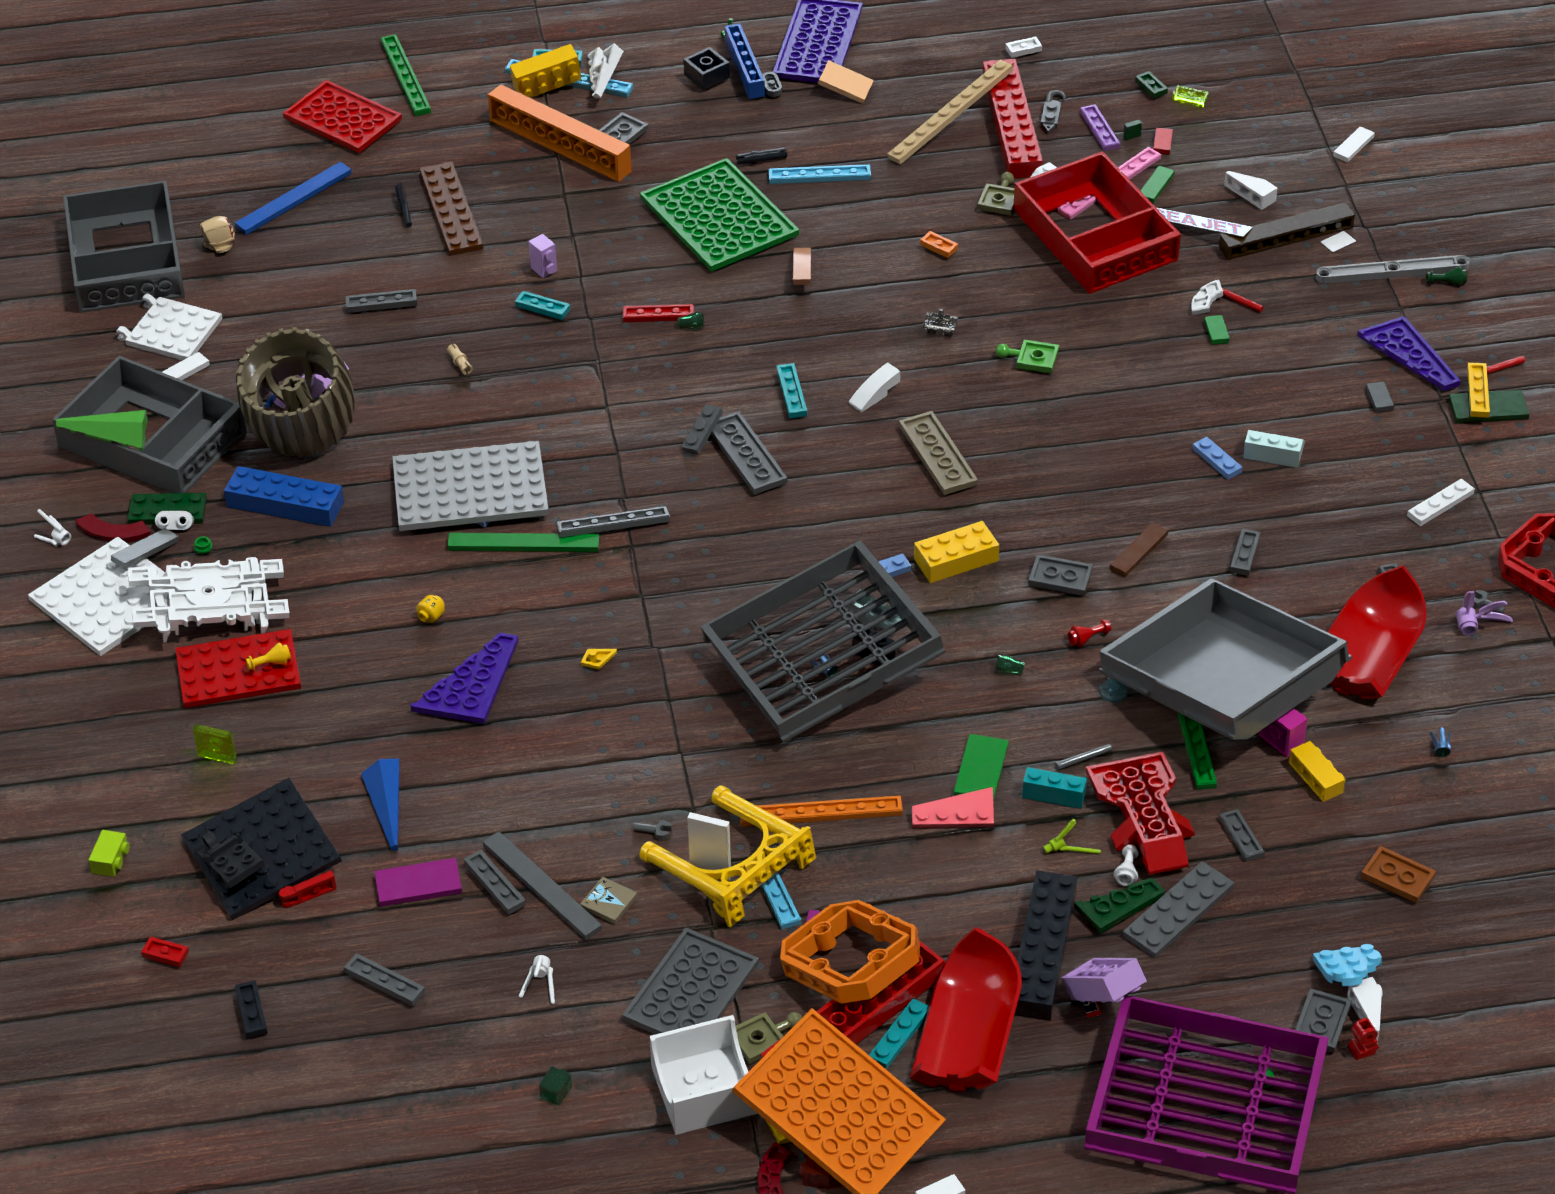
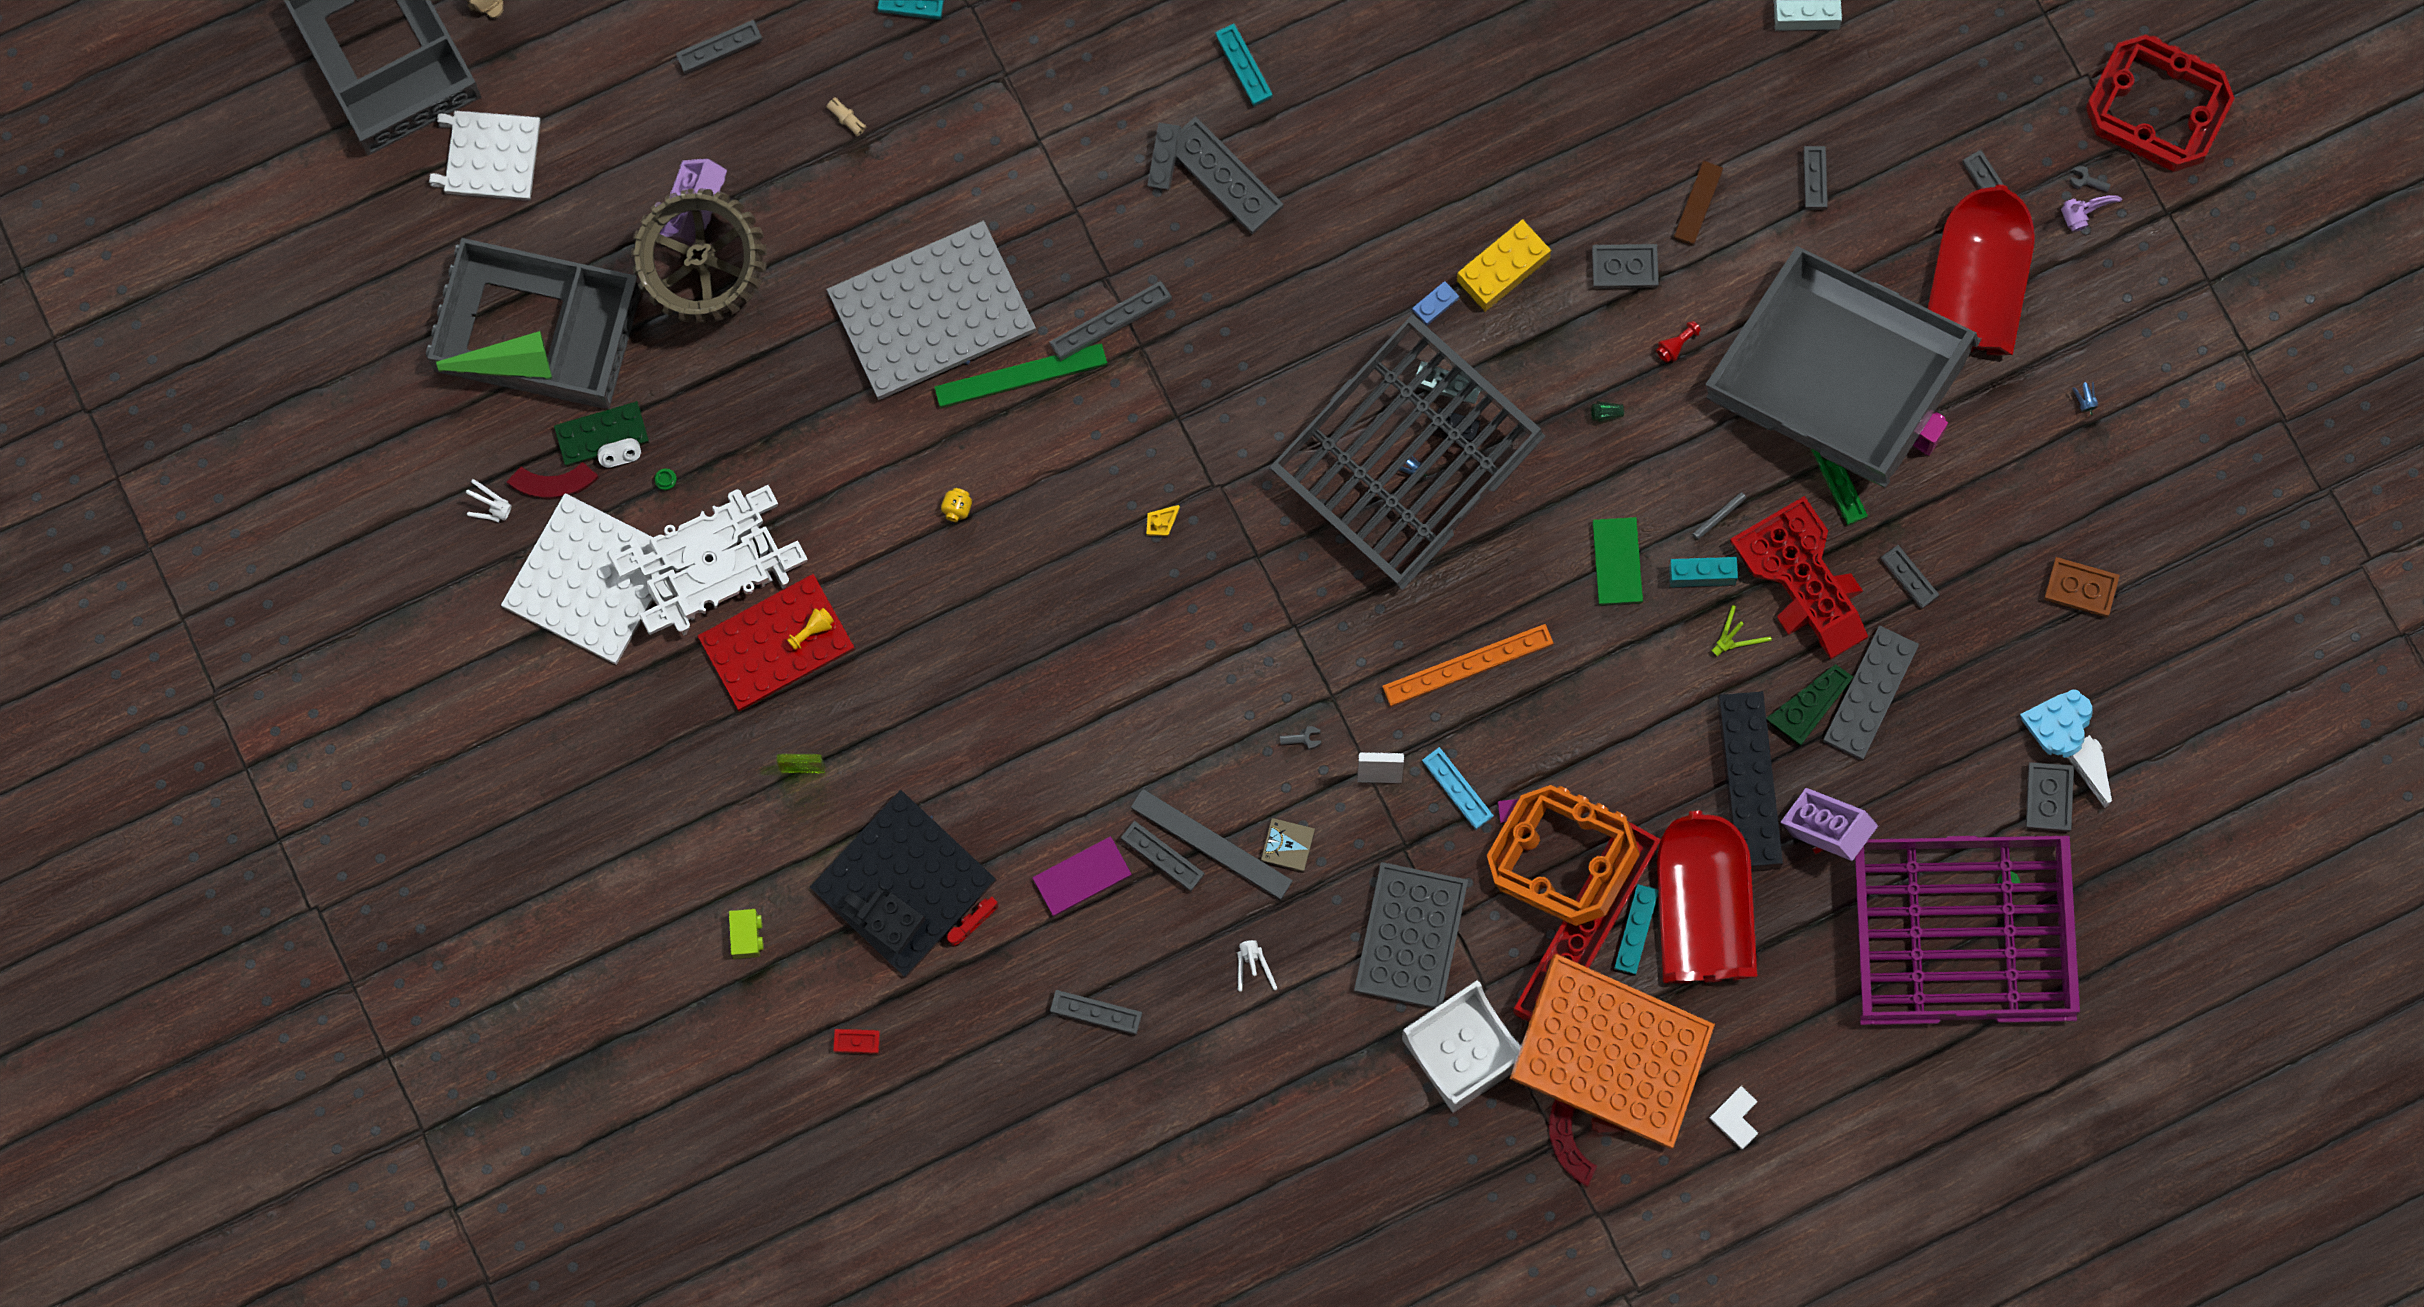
camera: 15 degrees left, 30 degrees up
(144, 548) = (605, 506): tile -> none
(188, 366) = (529, 218): white tile -> none
(251, 1009) = (974, 1087): black plate -> none
(284, 496) = (729, 385): blue brick -> none
(383, 786) = (999, 764): blue wedge -> none
(473, 685) = (1041, 599): dark purple wing -> none
(555, 1085) = (1317, 1093): clear green brick -> none
(754, 871) = (1454, 722): yellow arch -> none
(763, 1027) = (1499, 962): olive plate -> none
(875, 387) = (1337, 37): white slope -> none
(938, 452) = (1437, 117): dark tan plate -> none
(963, 810) = (1615, 627): coral wing -> none
(1113, 690) = (1720, 416): clear light blue piece -> none
(1126, 872) = (1807, 663): white piece -> none
(1217, 458) = (1747, 40): medium blue plate -> none
(1316, 771) = (1967, 472): yellow brick -> none
(1365, 1039) = (2097, 814): red leg -> none
(1440, 502) = (2007, 42): white plate -> none

